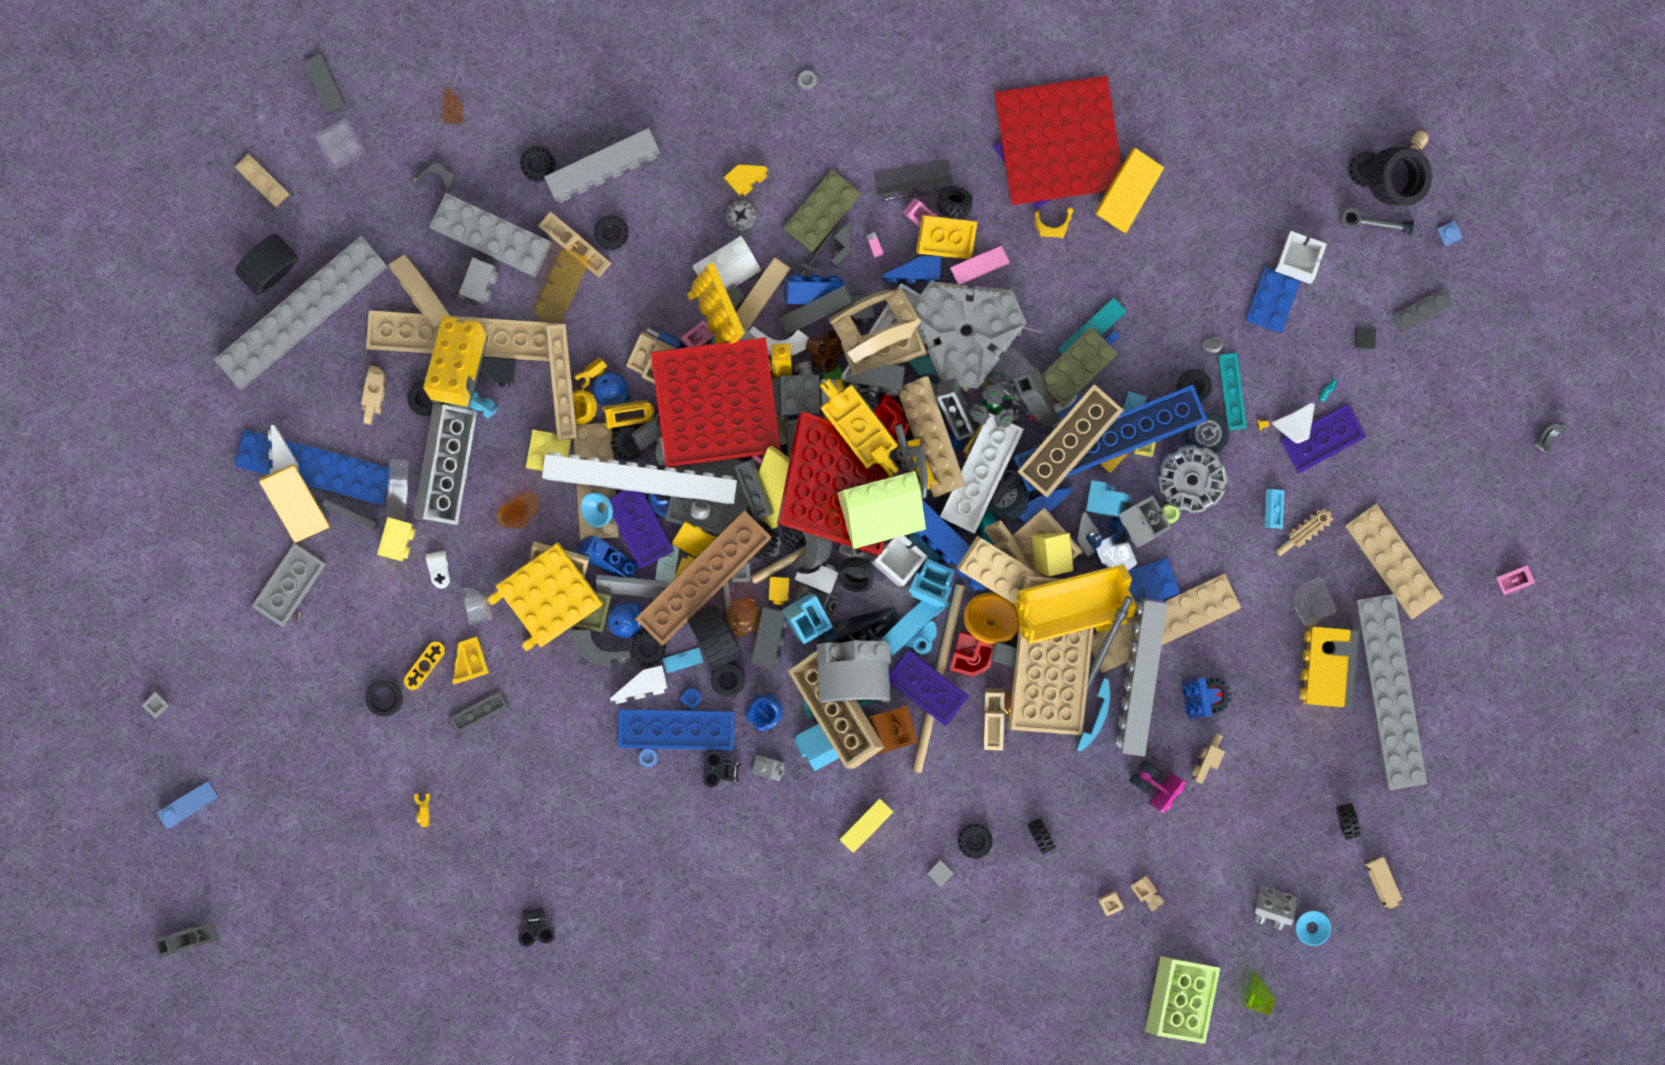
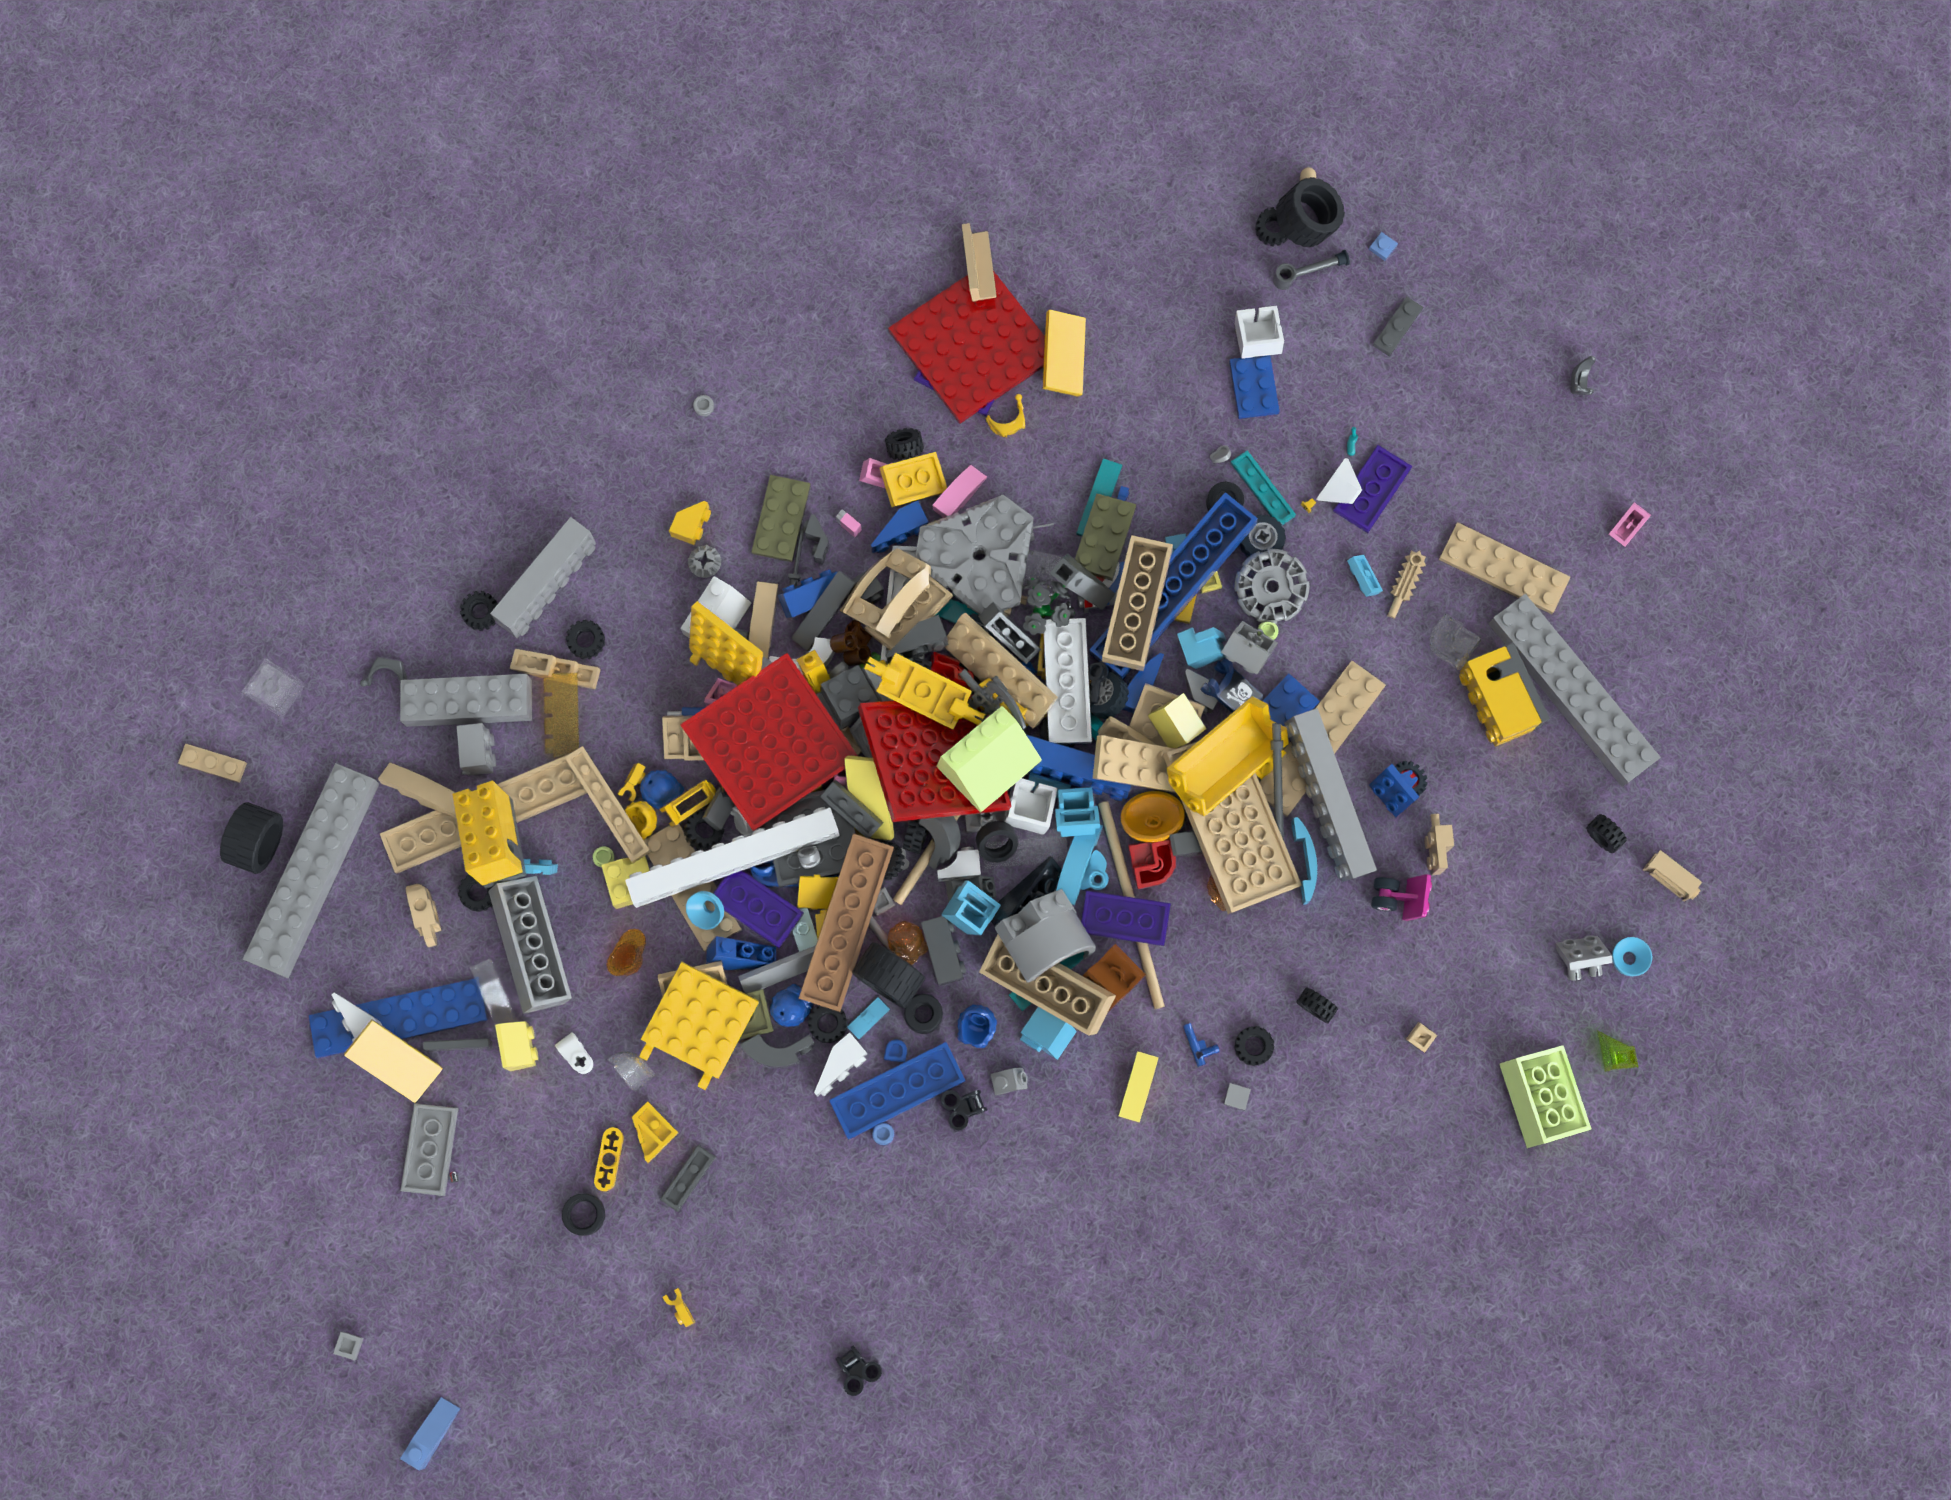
camera: 25 degrees left, 10 degrees down
(324, 83) = (231, 640): dark grey tile -> none
(452, 108) = (371, 601): clear orange tile -> none
(500, 370) = (540, 825): black slope -> none
(537, 421) = (602, 856): none -> yellowish green plate
(778, 590) = (928, 898): yellow brick -> none
(913, 177) = (849, 447): clear smoke windscreen -> none
(932, 819) = (1199, 1046): none -> blue hose
(994, 718) = (1207, 915): tan slope -> none
(1098, 75) = (979, 264): none -> tan panel
(1146, 891) = (1448, 1006): tan plate -> none
(1365, 338) = (1360, 378): pearl dark grey tile -> none

